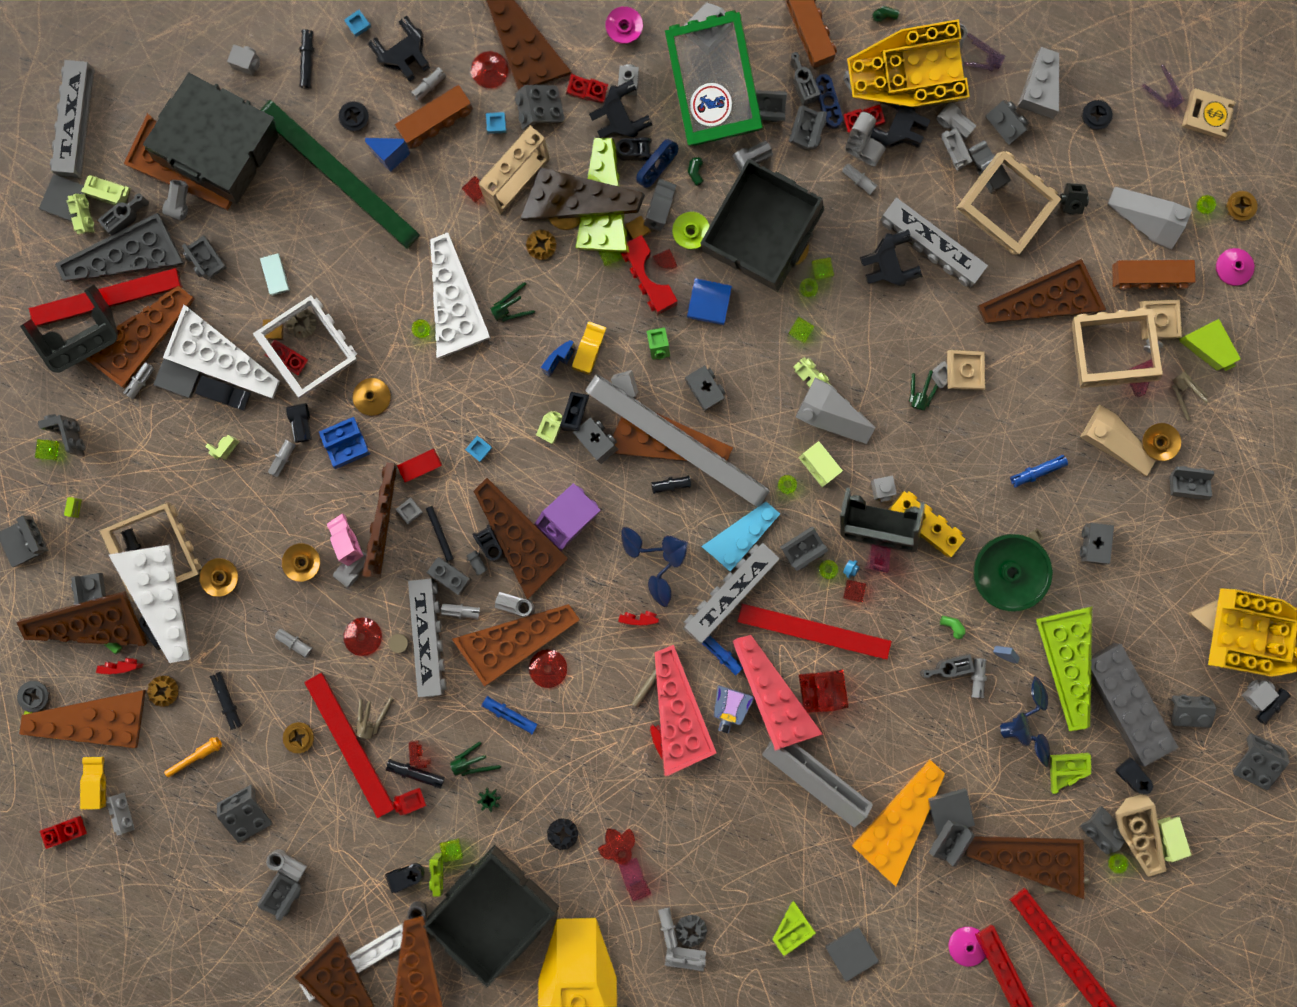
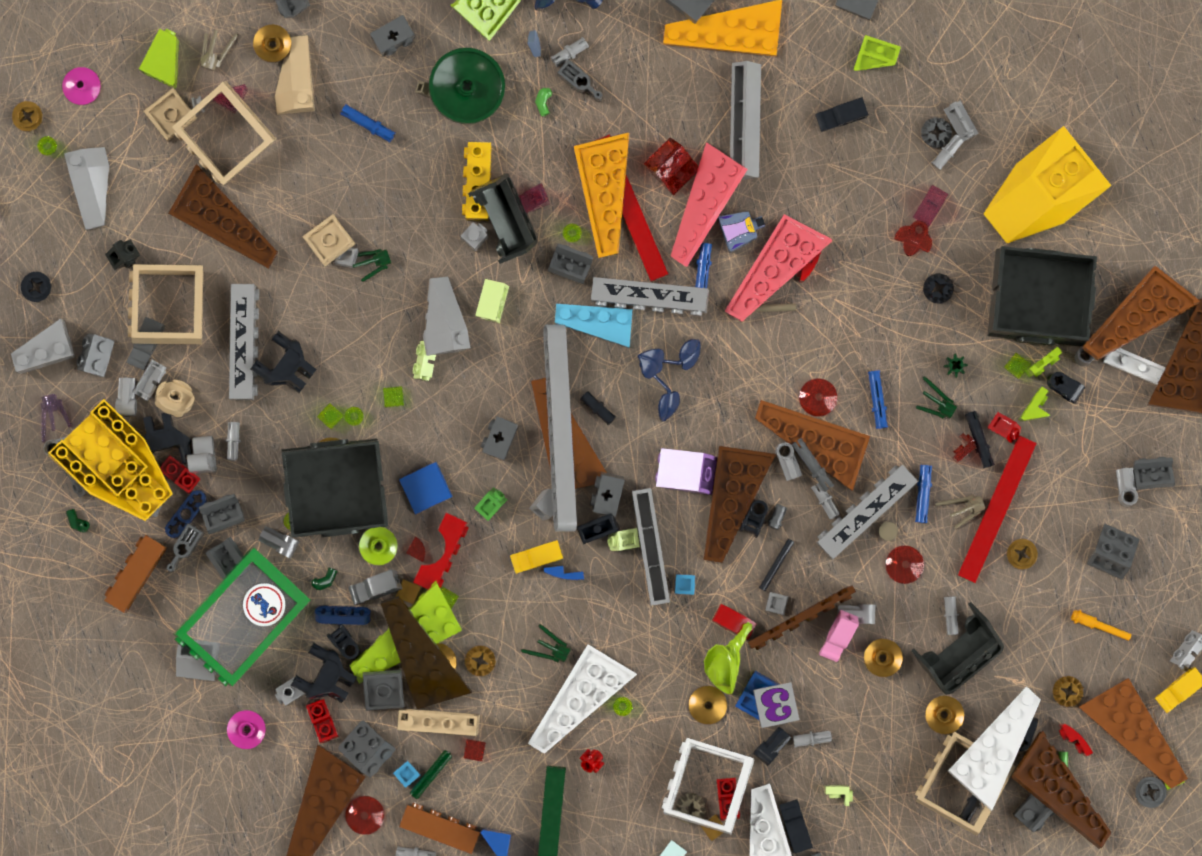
camera: 130 degrees left, 0 degrees up
(228, 707) = (1037, 633): black pin -> none
(254, 627) = (964, 656): none -> pearl dark grey windscreen
(328, 448) = (776, 705): none -> tile
(392, 431) = (723, 661): none -> lime hat
(396, 272) = (591, 761): none -> red gear
(406, 835) = (1032, 410): none -> lime slope
(409, 697) = (923, 493): none -> blue pin
(449, 576) = (804, 530): dark grey brick -> none
(481, 141) = (430, 775): none -> dark green axle
(495, 622) = (813, 465): none -> dark grey pin
(528, 442) = (650, 546): none -> light grey brick
(574, 152) = (383, 690): none -> dark grey tile
(645, 619) = (721, 348): red slope -> none
(763, 863) = (842, 114): none -> black piece
(791, 479) = (533, 319): clear neon green plate -> none
(851, 568) = (558, 215): dark azure plate -> none
(854, 591) = (573, 199): clear red tile -> none
(855, 627) = (603, 181): none -> light orange wing
(921, 149) = (171, 406): none -> tan plate
(1153, 274) = (138, 147): dark orange brick -> none

